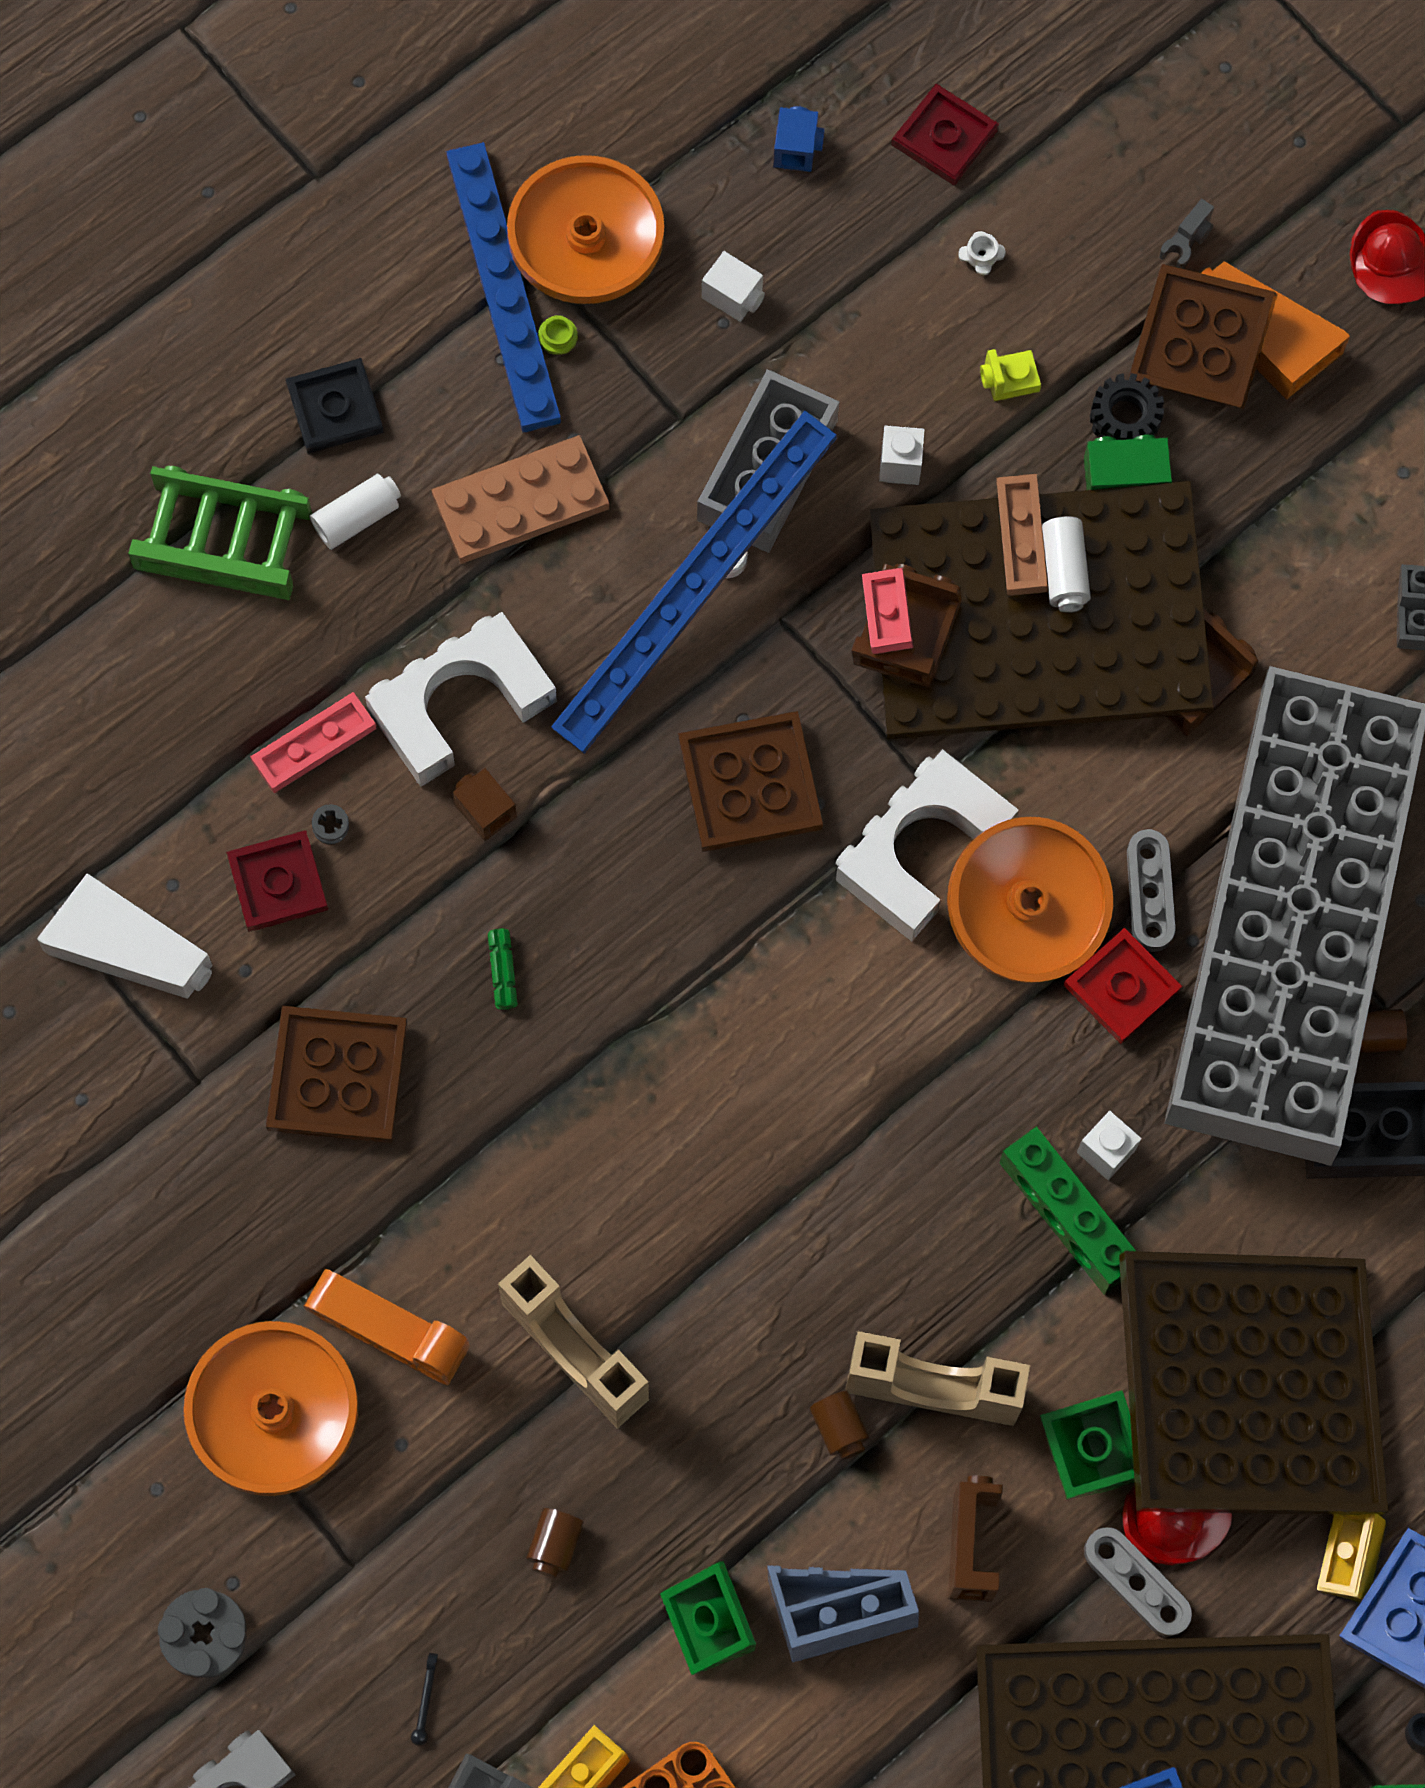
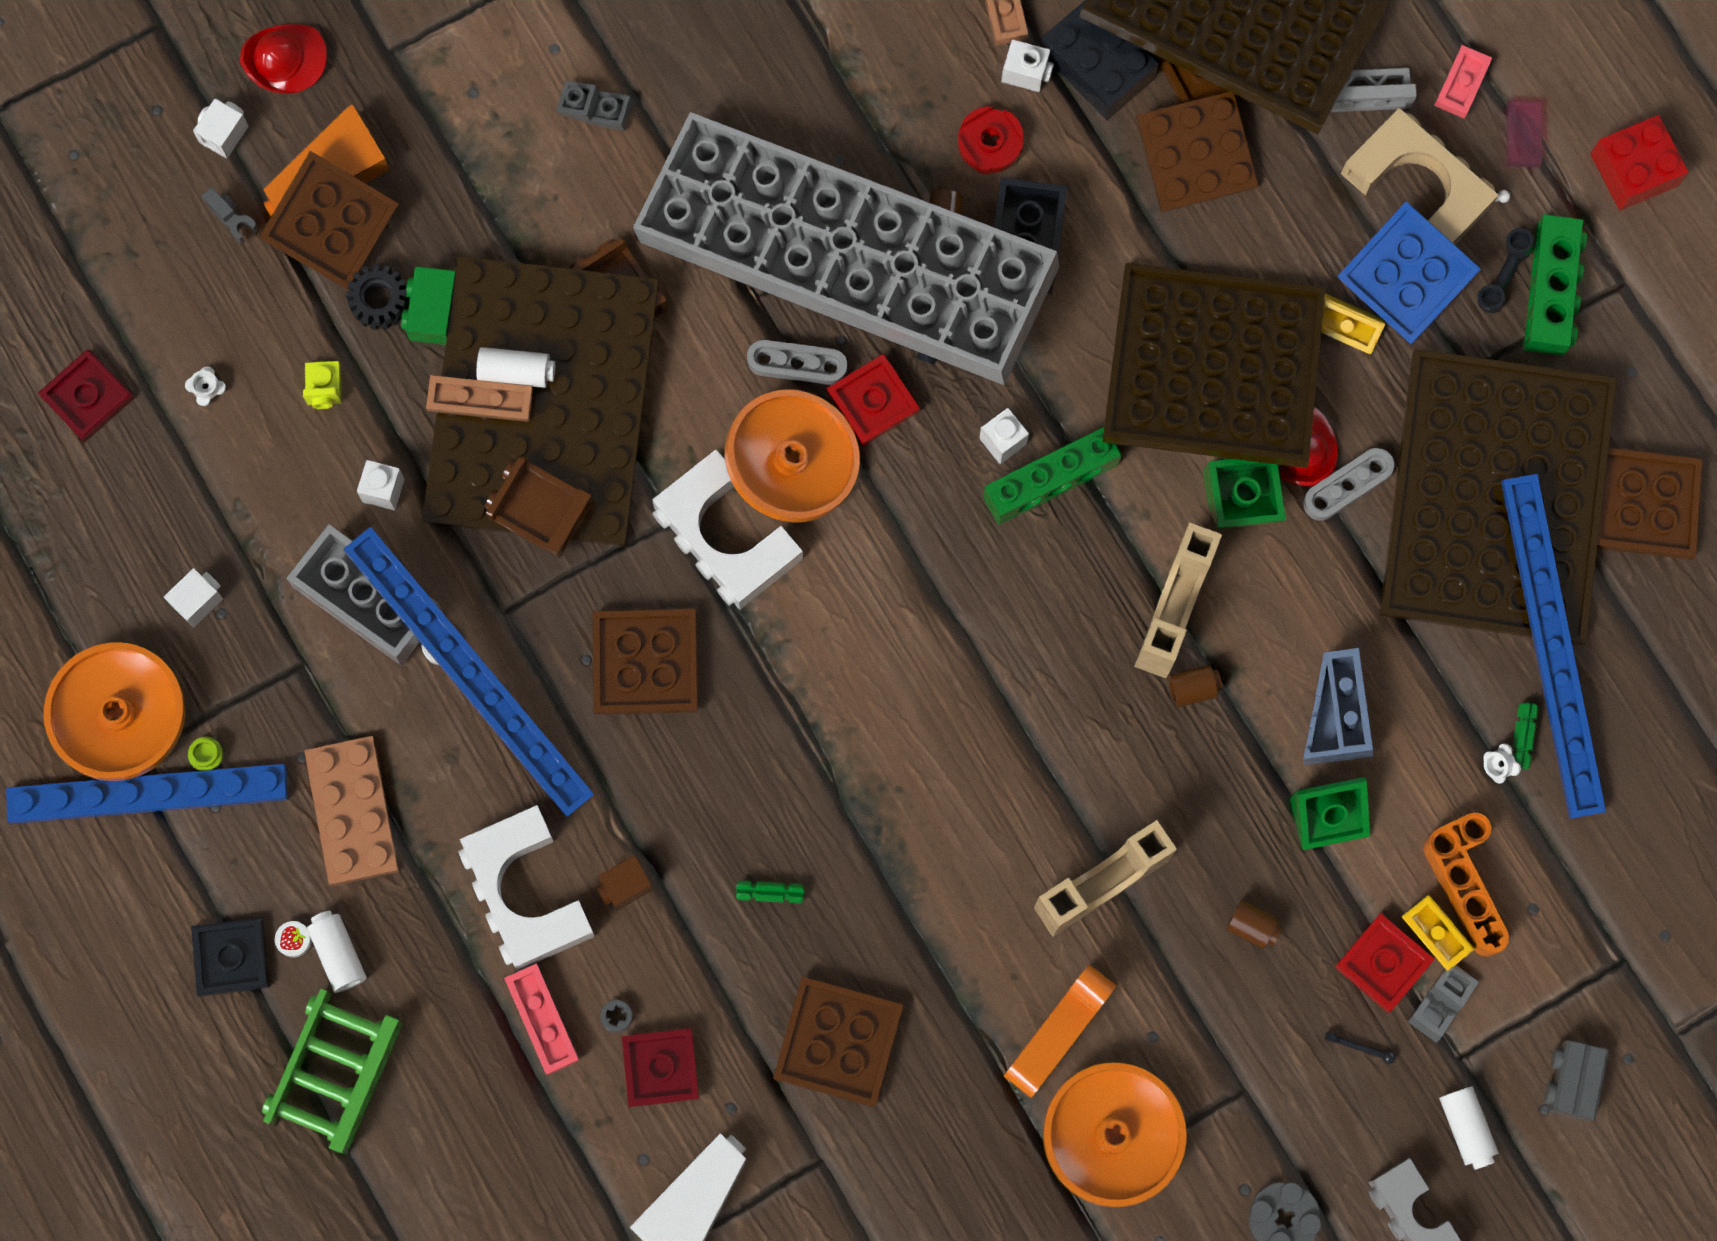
camera: 80 degrees left, 5 degrees up
(363, 464) = (293, 939): none -> tile
(533, 1712) = (1384, 963): none -> red plate
(797, 139) = (64, 518): blue brick -> none
(887, 611) = (530, 517): coral plate -> none
(963, 1581) = (1303, 605): reddish brown panel -> none
(1291, 207) = (220, 127): none -> white brick

